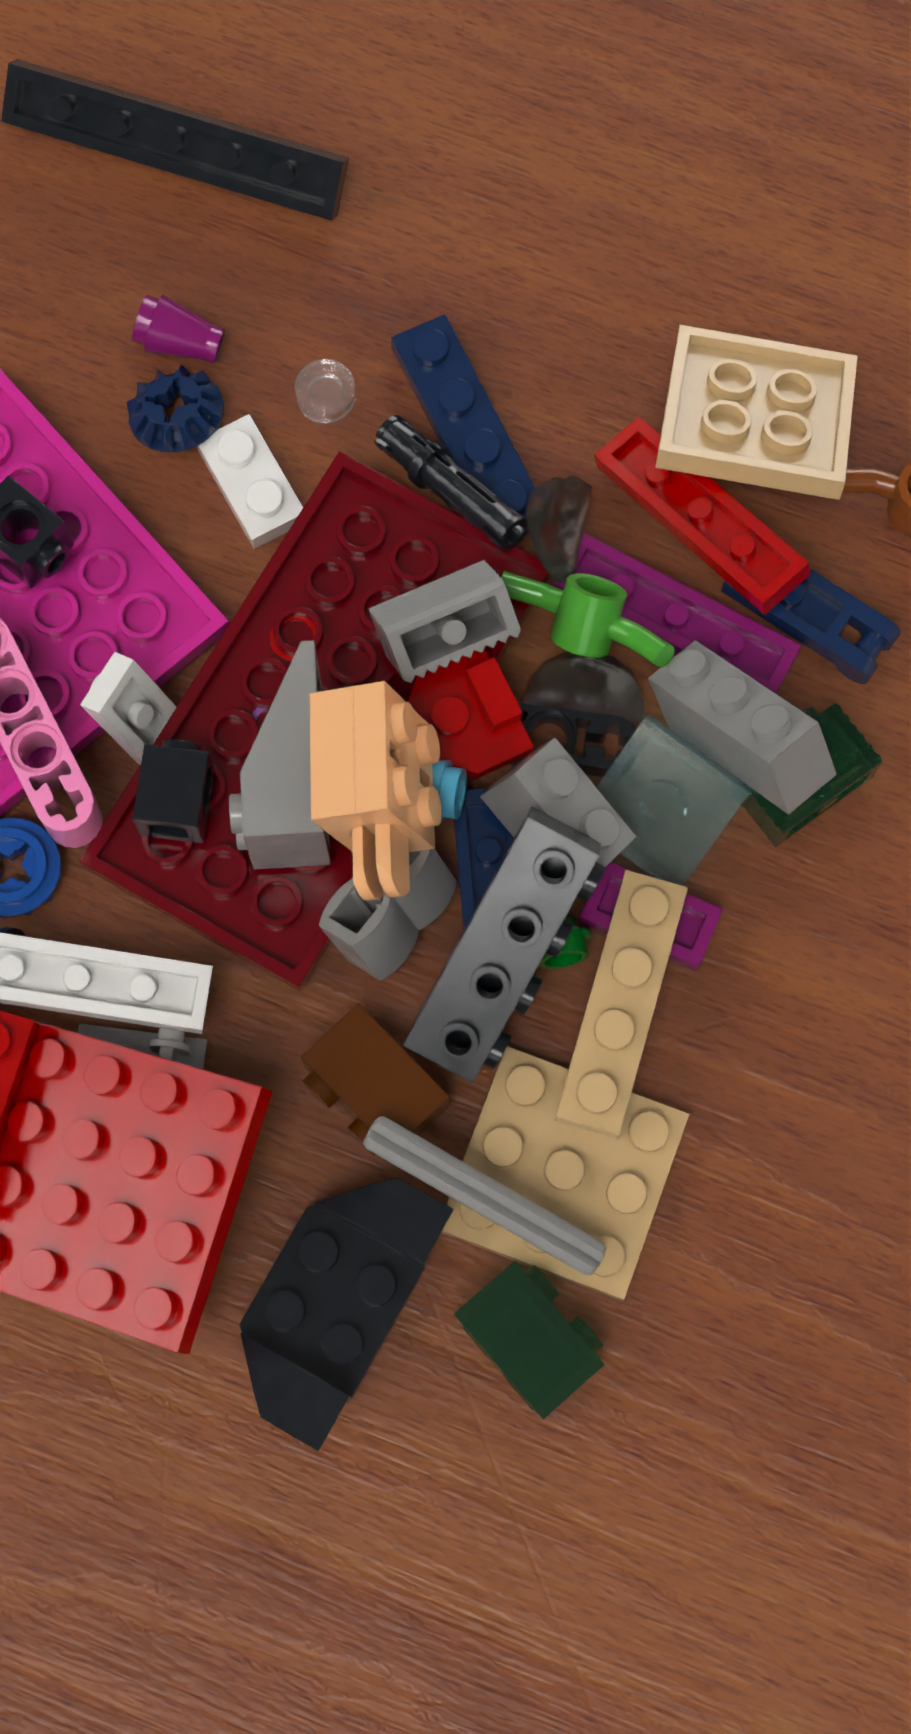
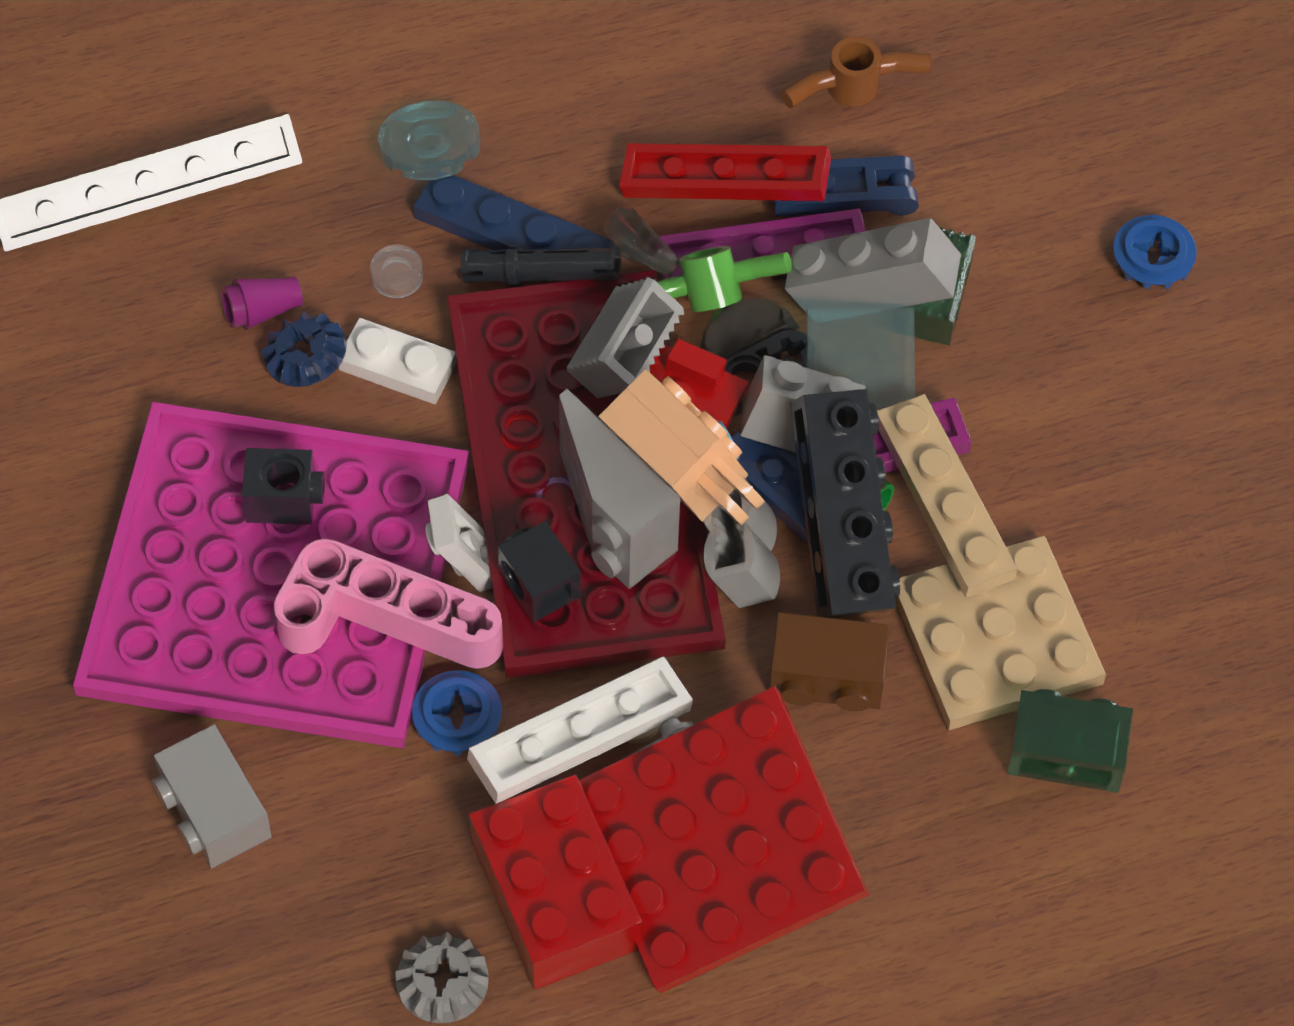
camera: 40 degrees left, 15 degrees down
(335, 1301) = (922, 804): black piece -> none
(460, 279) = (429, 139): none -> clear light blue tile
(484, 1195) = (966, 664): light grey axle -> none
(758, 412) = (706, 86): tan plate -> none

